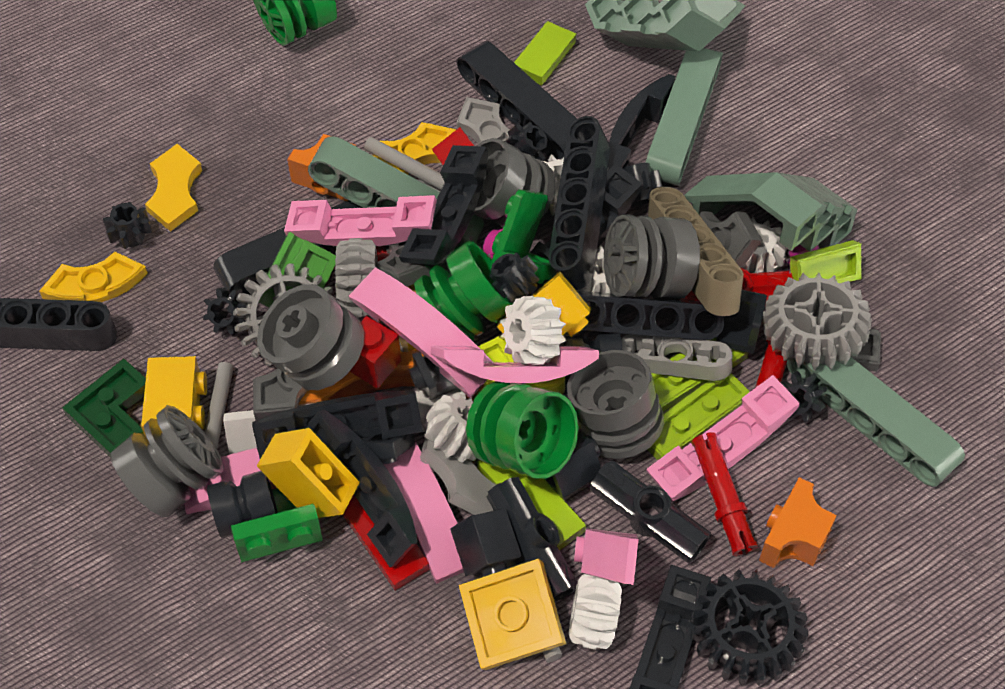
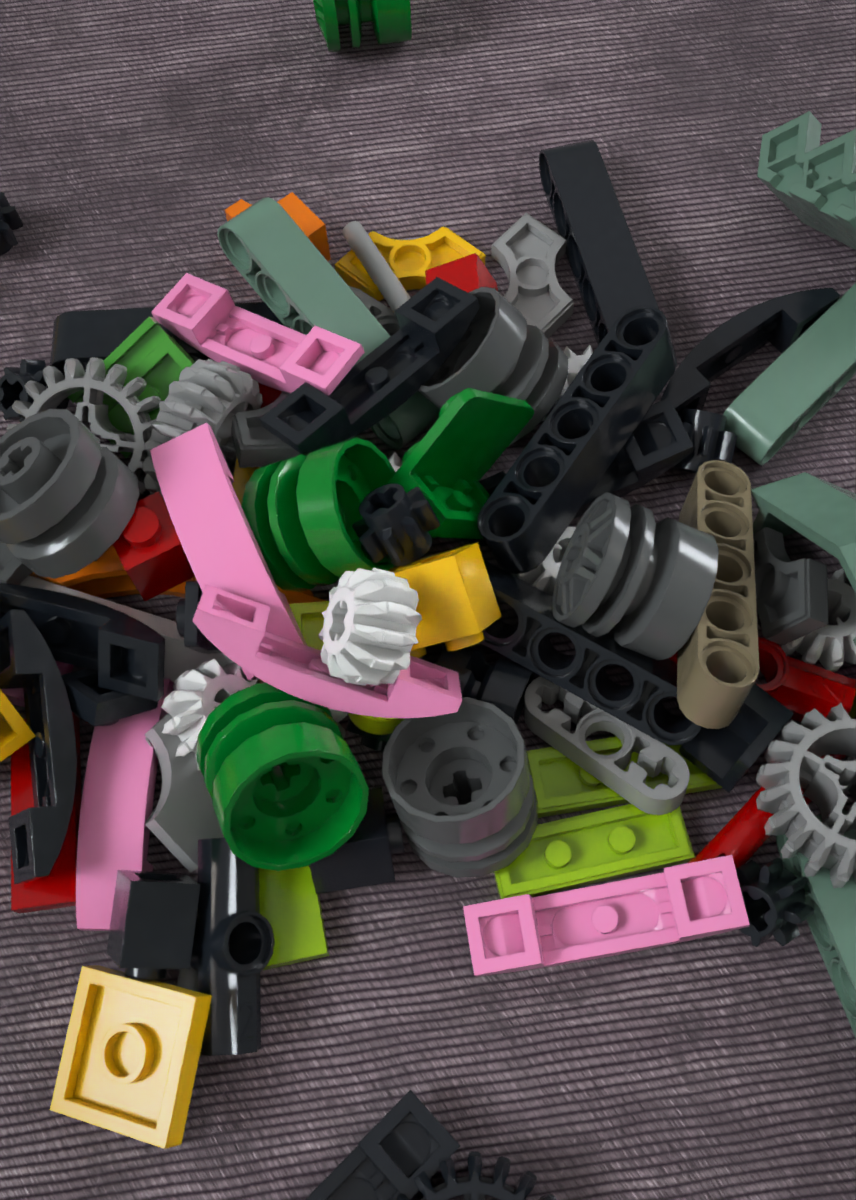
camera: 30 degrees right, 10 degrees up
(172, 198) = (71, 208): yellow tile -> none
(528, 140) = (564, 314): black gear -> none
(545, 51) = (673, 188): lime tile -> none
(595, 612) = (247, 1116): white gear -> none
(607, 554) = (311, 1047): bright pink slope -> none
(669, 527) = (447, 1024): black piece -> none
(729, 508) = (557, 1013): red pin -> none
(797, 528) = (644, 1126): orange brick -> none

